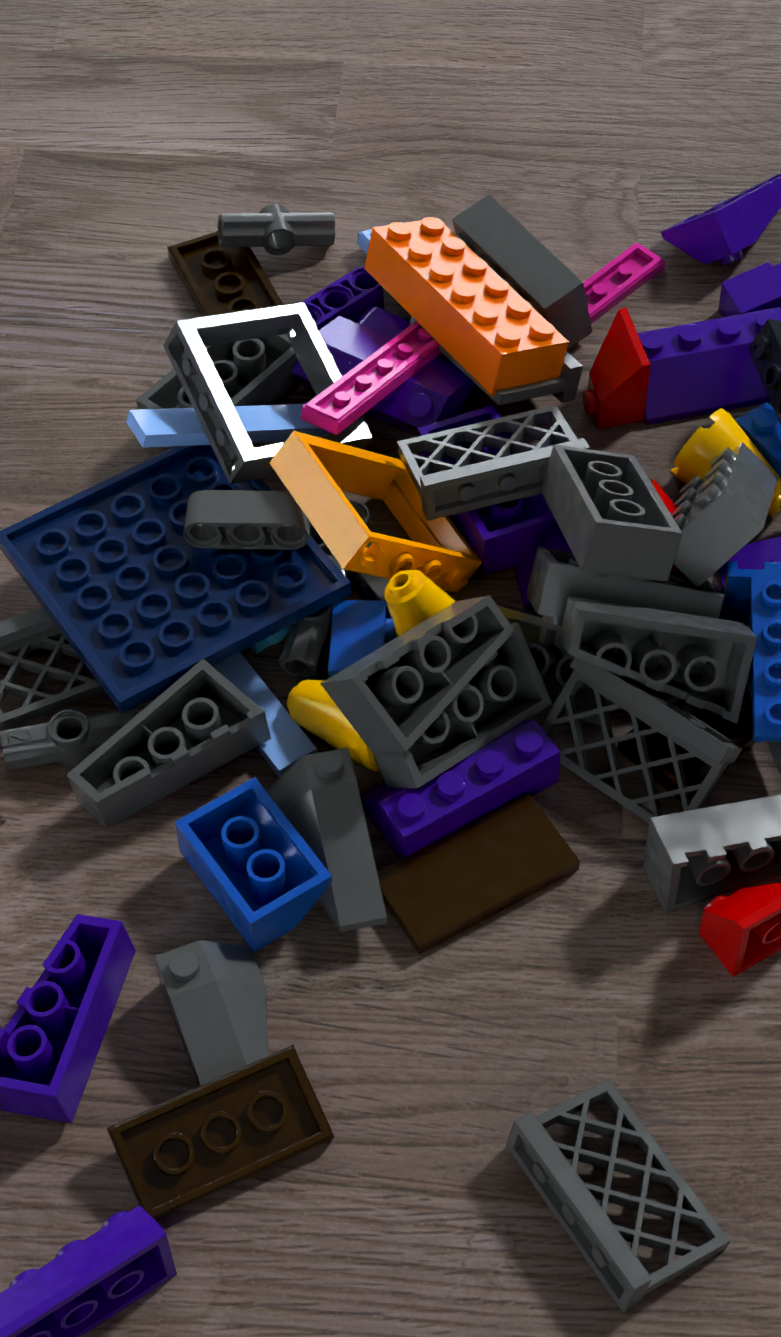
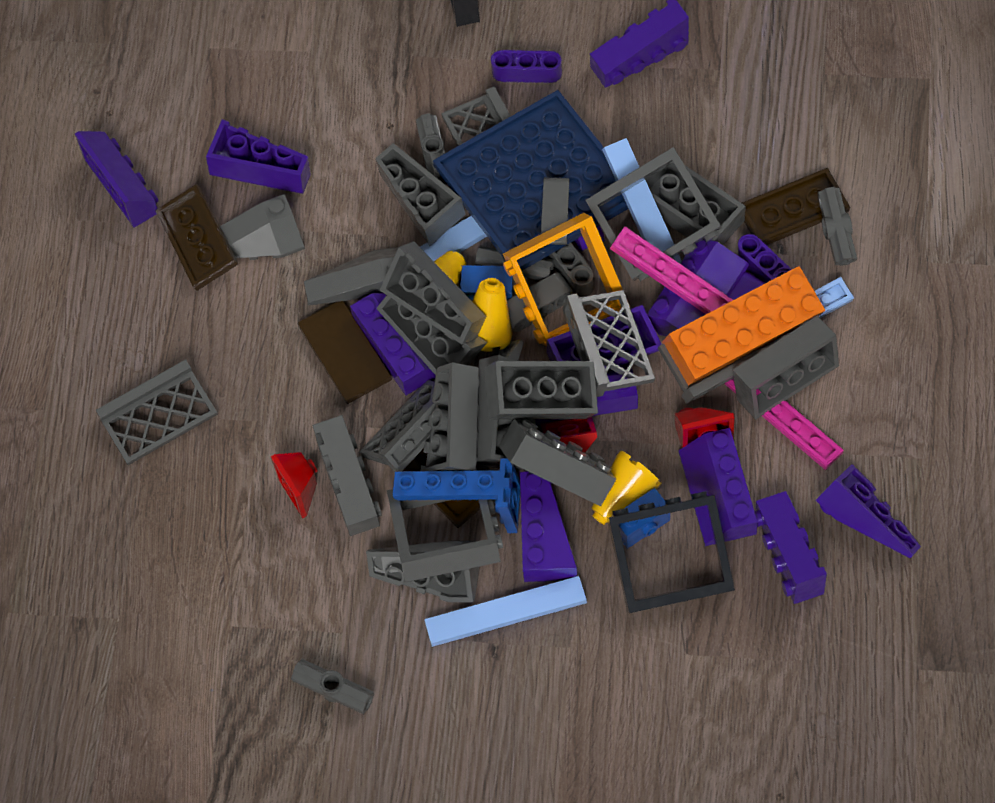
camera: 95 degrees right, 10 degrees up
(252, 862) = (341, 234): blue slope -> none

